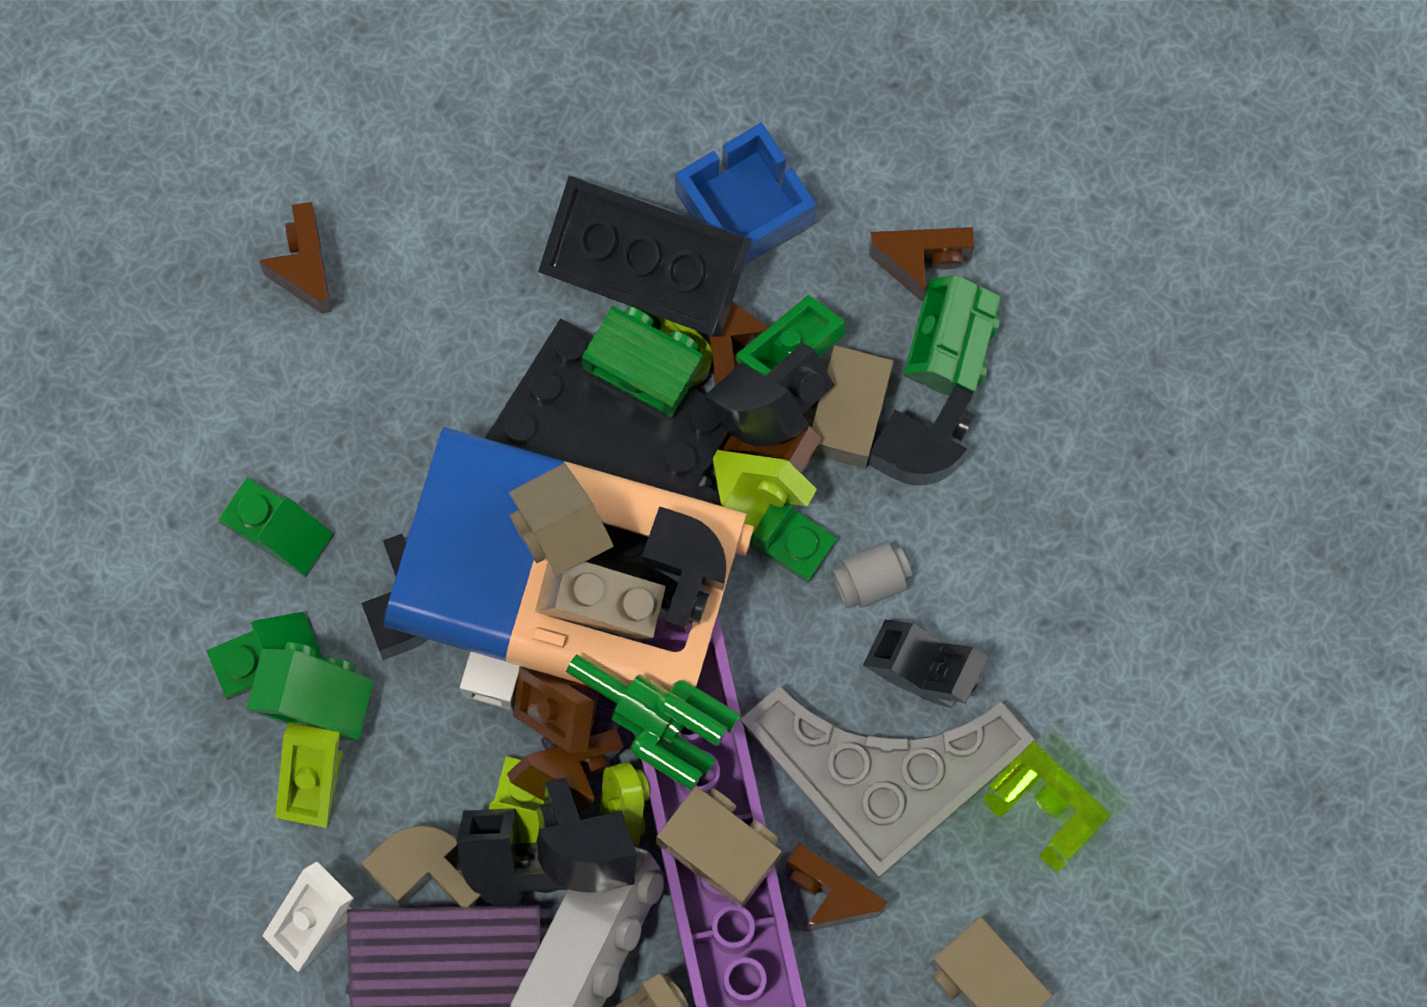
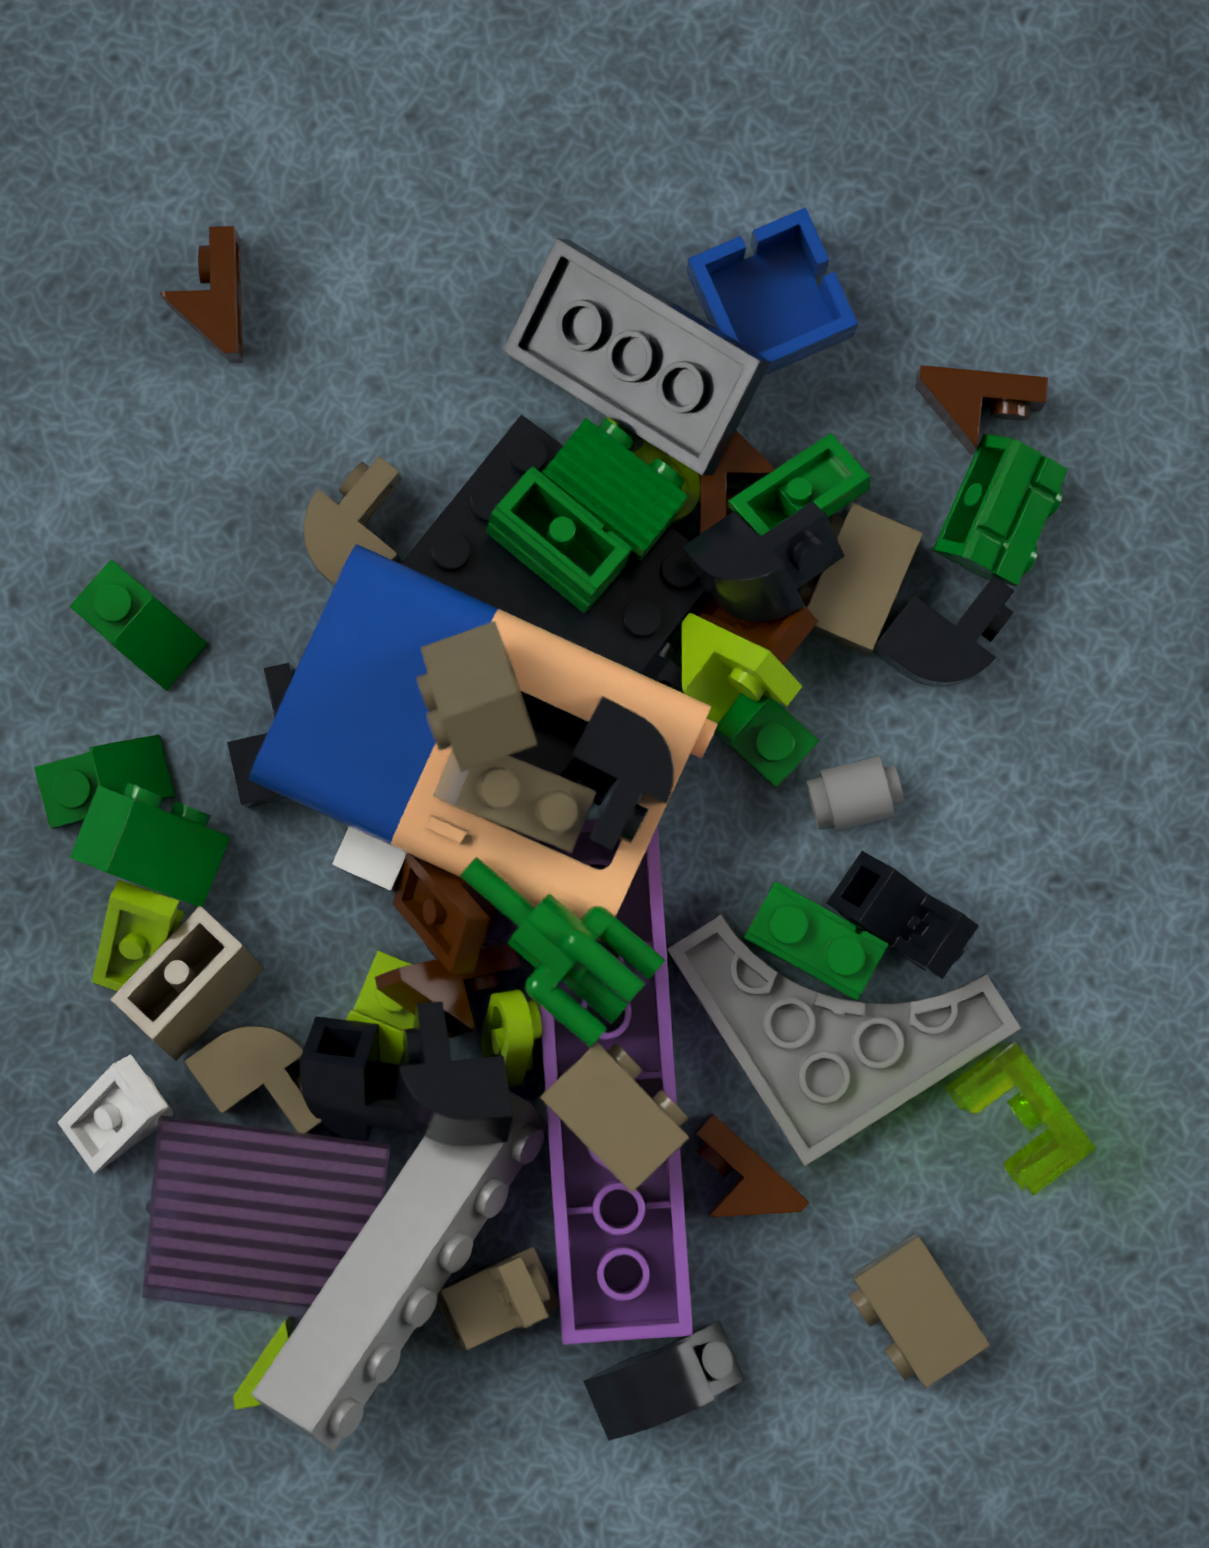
camera: 15 degrees right, 10 degrees up
(355, 801) = (187, 983): none -> dark tan brick
(423, 423) = (336, 528): none -> dark tan brick
(605, 403) = (558, 539): none -> green brick
(857, 694) = (815, 941): none -> green brick

